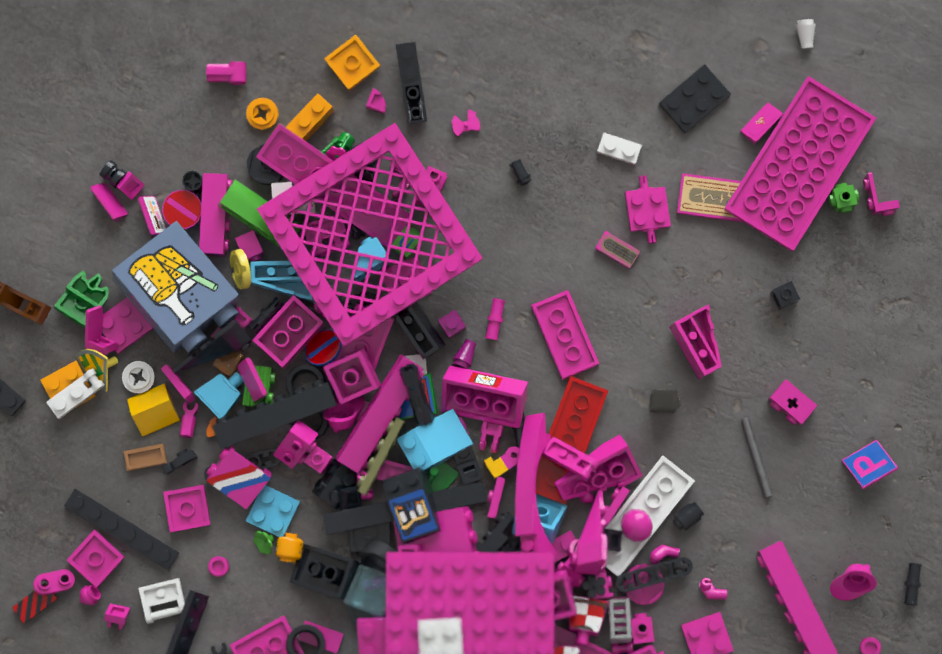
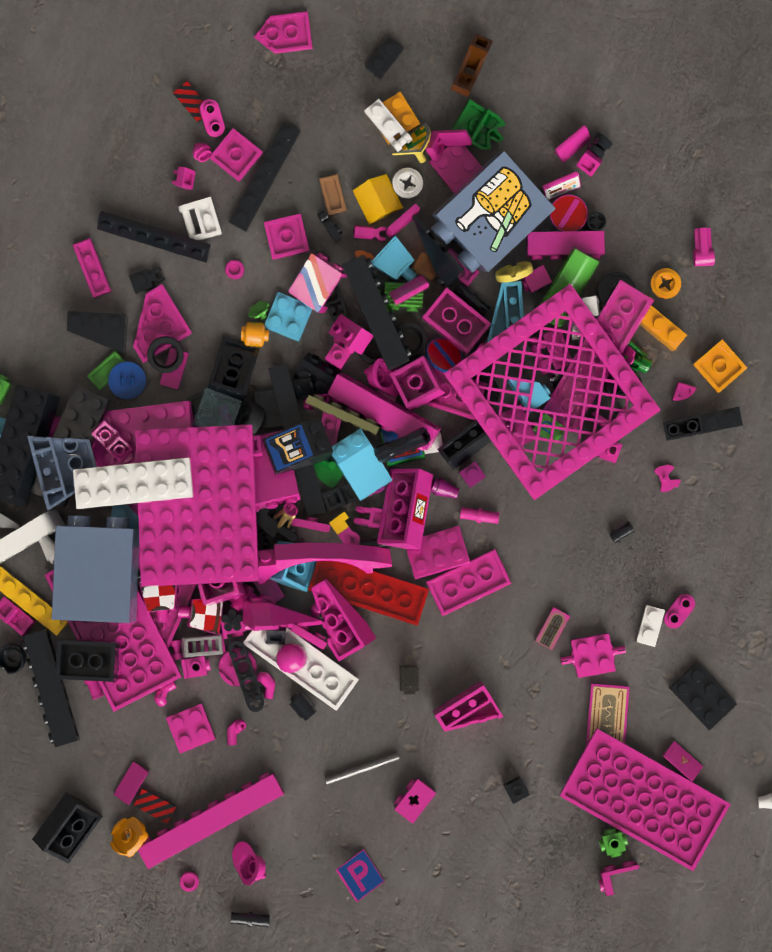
camera: 80 degrees right, 5 degrees up
(483, 519) = (289, 512): none -> piece
(532, 363) = (439, 553): none -> dark pink plate
(570, 458) = (350, 592): dark pink plate -> none
(604, 118) = (678, 610): none -> dark pink plate

